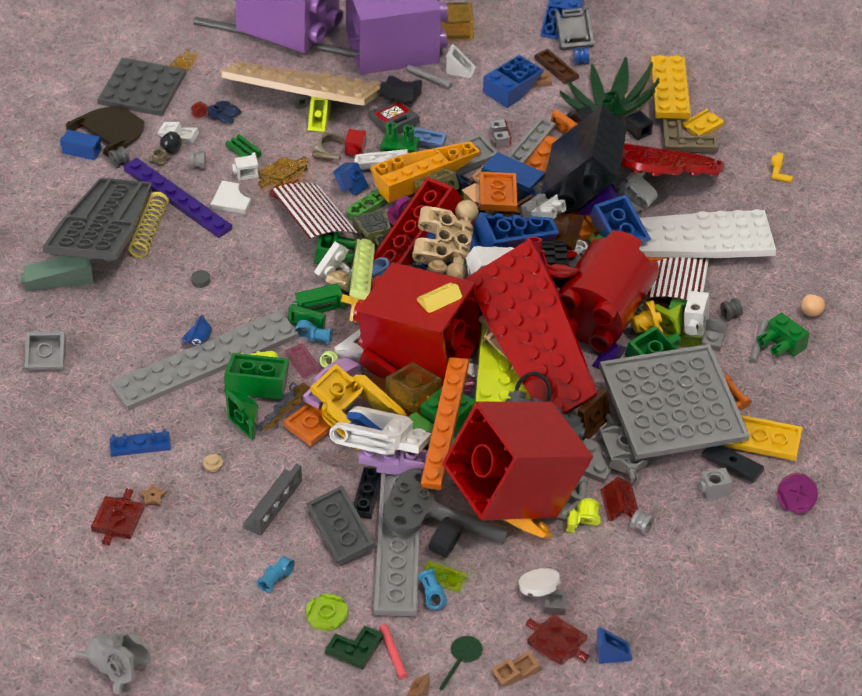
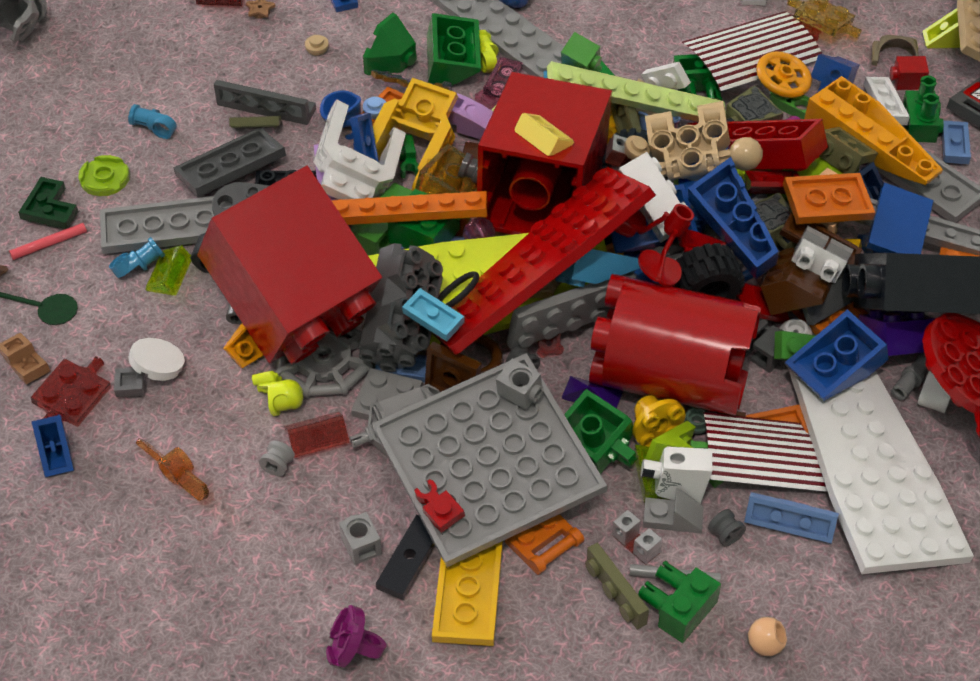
camera: 80 degrees right, 5 degrees up
(295, 353) = (500, 75): none -> clear pink tile
(296, 507) = (260, 121): none -> olive tile
(303, 448) = (344, 96): none -> blue helmet
(311, 427) = (373, 105): none -> light blue plate
(329, 288) = (581, 53): none -> bright green brick
(344, 201) = (784, 74): none -> light orange plate
(421, 364) = (469, 168): none -> dark grey wheel
(572, 393) = (433, 314): none -> medium azure plate
(631, 365) = (515, 374): none -> light grey brick
(641, 578) = (177, 468): none -> clear orange piece
(712, 427) = (440, 509): none -> red plate
(727, 279) = (791, 517): none -> medium blue plate
(728, 355) = (643, 546): none -> flat silver piece
(768, 365) = (616, 586): none -> olive plate

